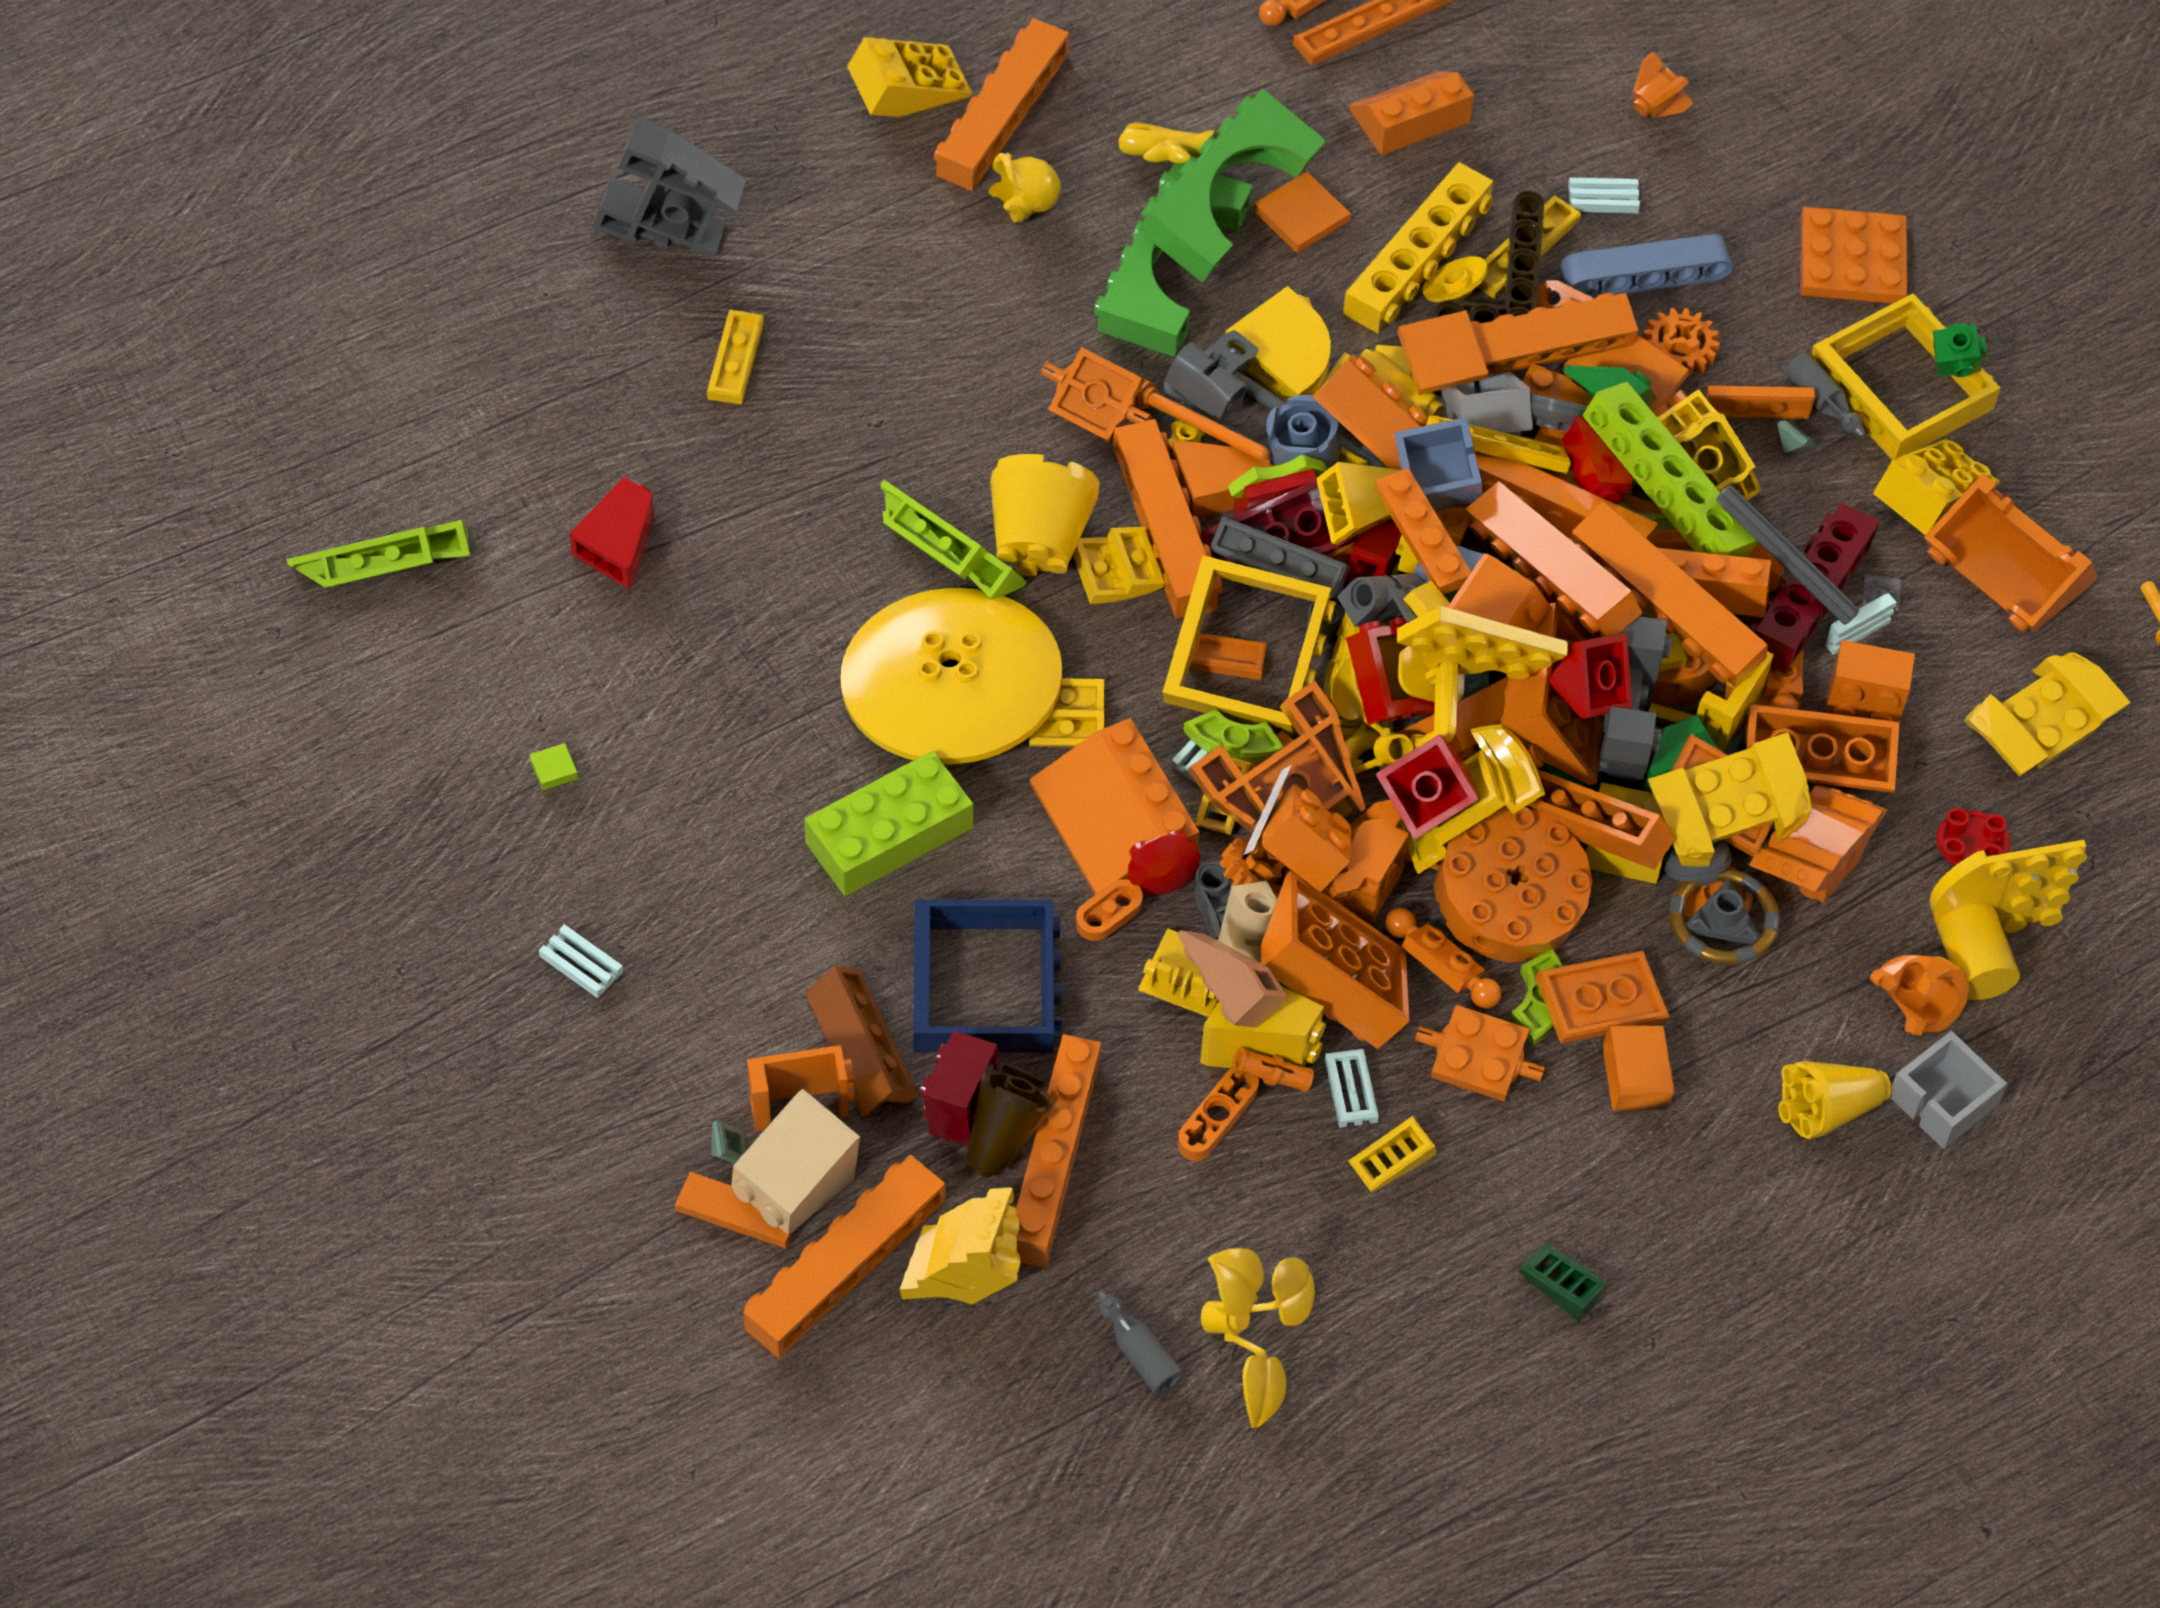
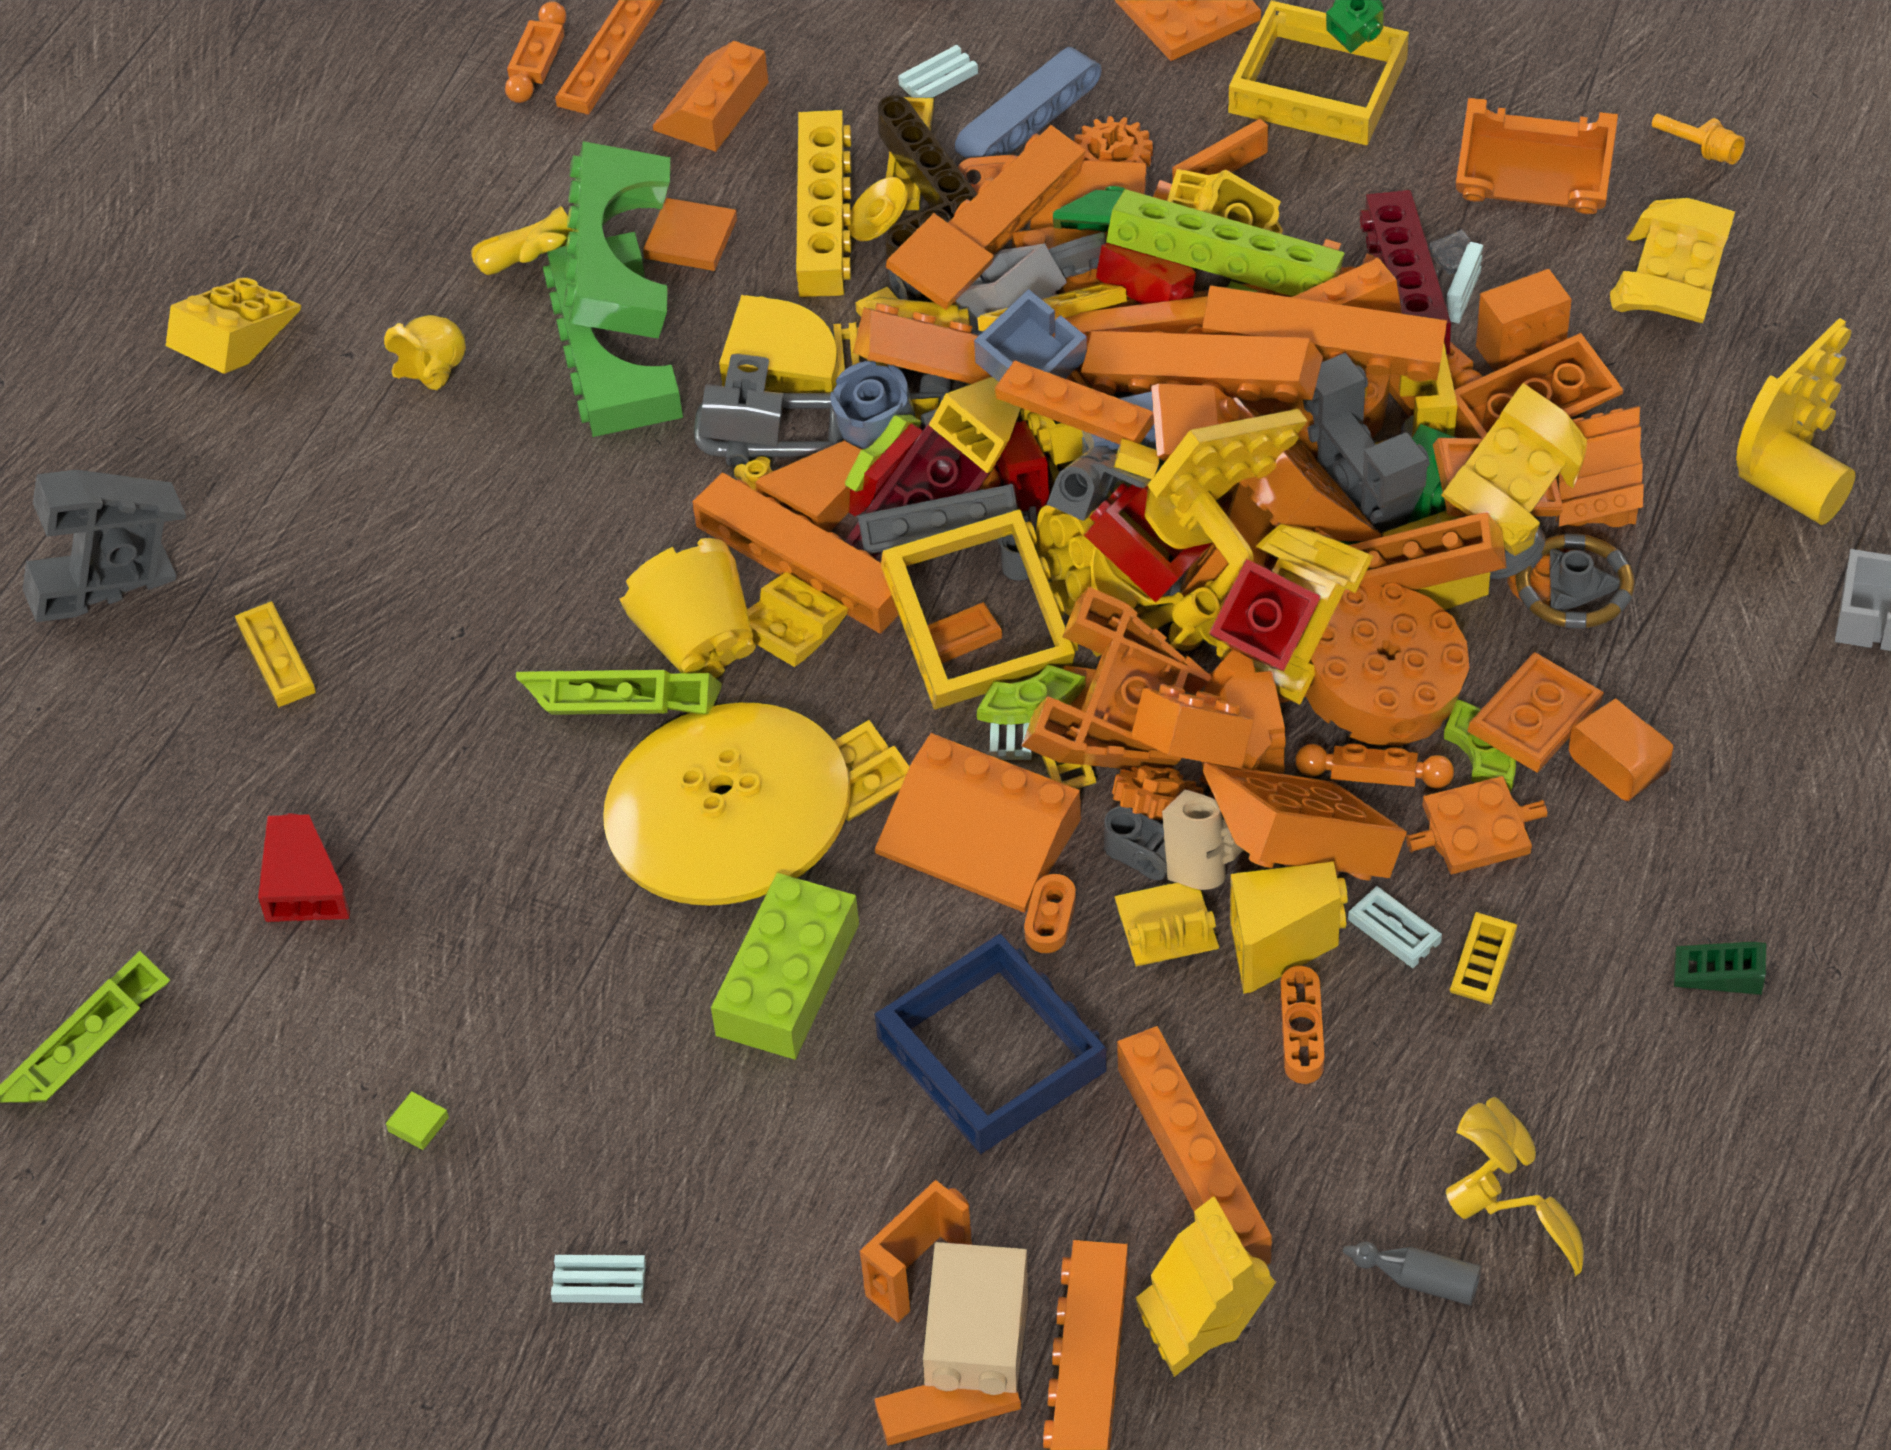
camera: 30 degrees left, 5 degrees down
(727, 1142) = (887, 1350): sand green slope -> none
(855, 1022) = (907, 1164): dark orange panel -> none
(954, 1086) = (1066, 1151): dark red brick -> none
(1001, 104) = (340, 297): orange brick -> none
(1005, 1117) = (1134, 1148): dark brown cone -> none
(1095, 394) = (647, 485): orange plate -> none
(1150, 397) = (688, 461): orange piece -> none
(1163, 863) = (1068, 838): red dish -> none
(1239, 982) = (1253, 883): nougat slope -> none
(1268, 807) = (1135, 727): white sticker -> none
(1273, 1069) = (1321, 953): orange pin -> none
(1595, 676) = (1330, 435): red slope -> none
(1787, 555) = (1372, 248): dark grey axle -> none
(1794, 439) = (1274, 171): sand green slope -> none
(1828, 1095) = (1793, 672): yellow cone -> none
(1829, 396) = (1238, 113): dark grey wheel -> none
(1925, 989) = (1791, 535): orange piece -> none
(1929, 482) = (1421, 141): yellow slope -> none
(1969, 832) = (1710, 396): red dish -> none

